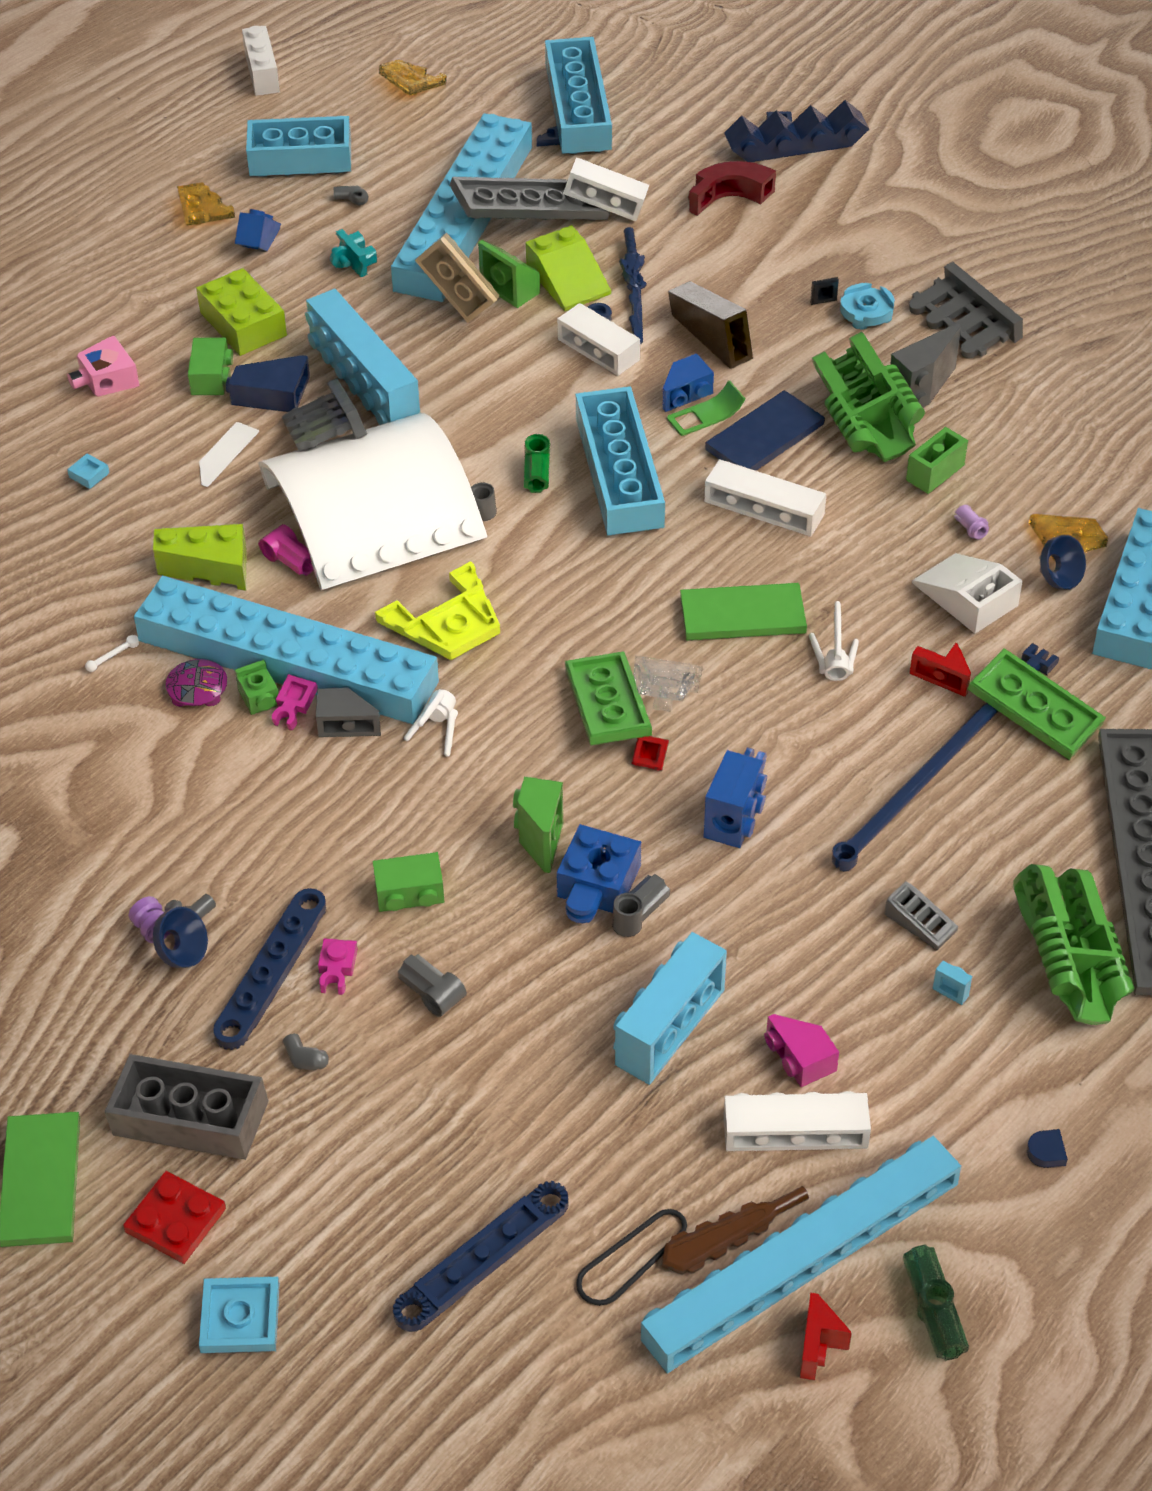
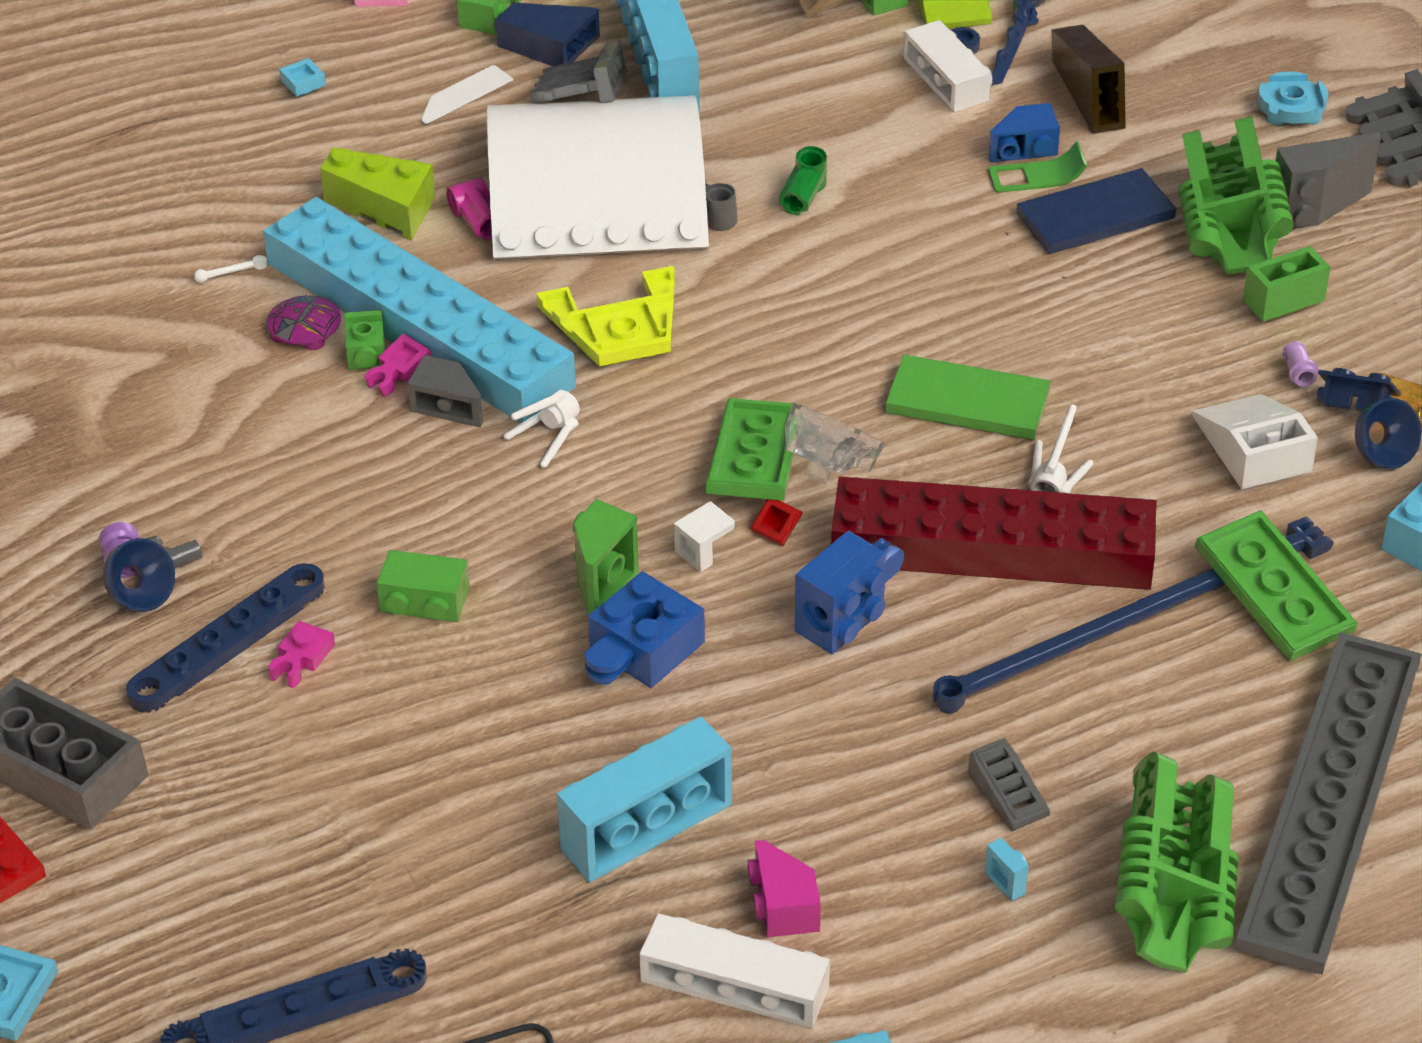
camera: 20 degrees right, 5 degrees down
(304, 1057) = (213, 740): dark grey arm -> none
(436, 989) = (393, 706): dark grey piece -> none
(601, 780) = (696, 533): none -> white panel
(620, 461) = (899, 198): medium azure brick -> none
(634, 907) = (663, 682): dark grey piece -> none
(765, 497) = (1057, 278): white brick -> none
(821, 716) = (1004, 531): none -> dark red brick
(824, 290) = (1246, 71): black slope -> none
(947, 672) = (1178, 519): red slope -> none
(1012, 532) = (1344, 385): none -> dark blue hinge

